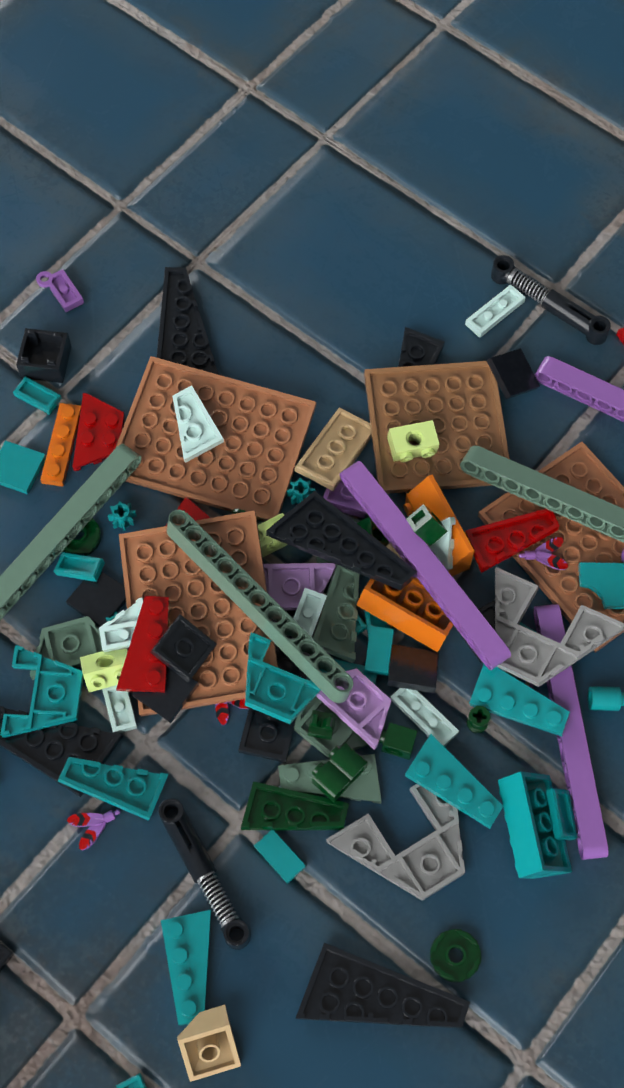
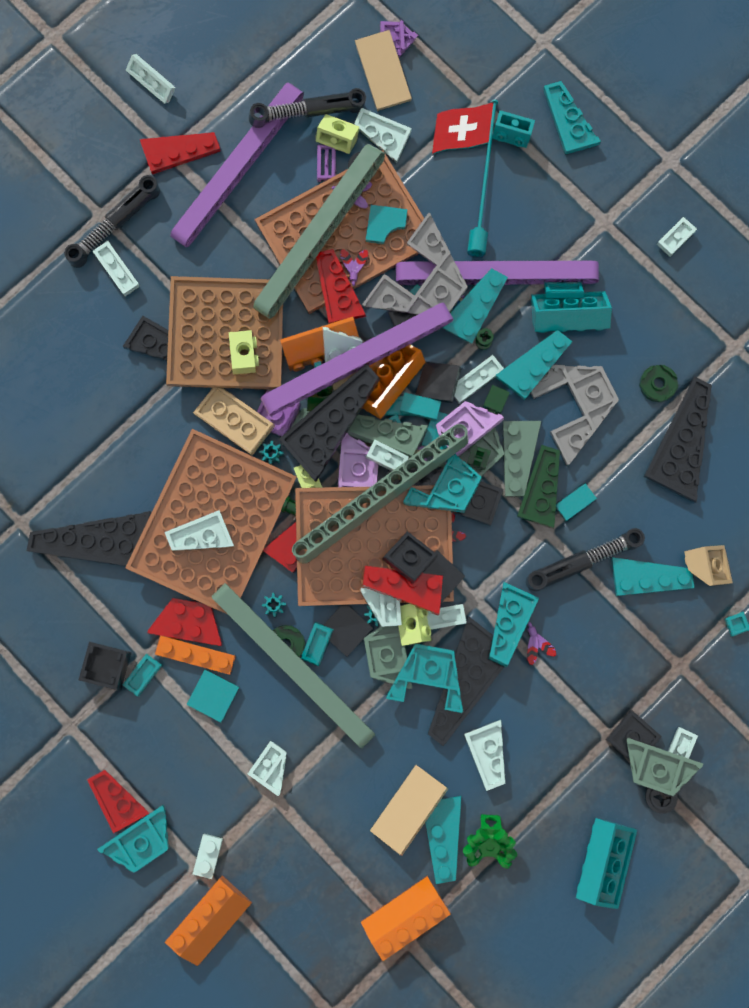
camera: 80 degrees left, 15 degrees up
(61, 288) = (34, 647): medium lavender hinge -> none
(339, 772) = (519, 447): dark green brick -> none
(426, 525) = (330, 349): dark green brick -> none
(513, 373) = (184, 262): black tile -> none

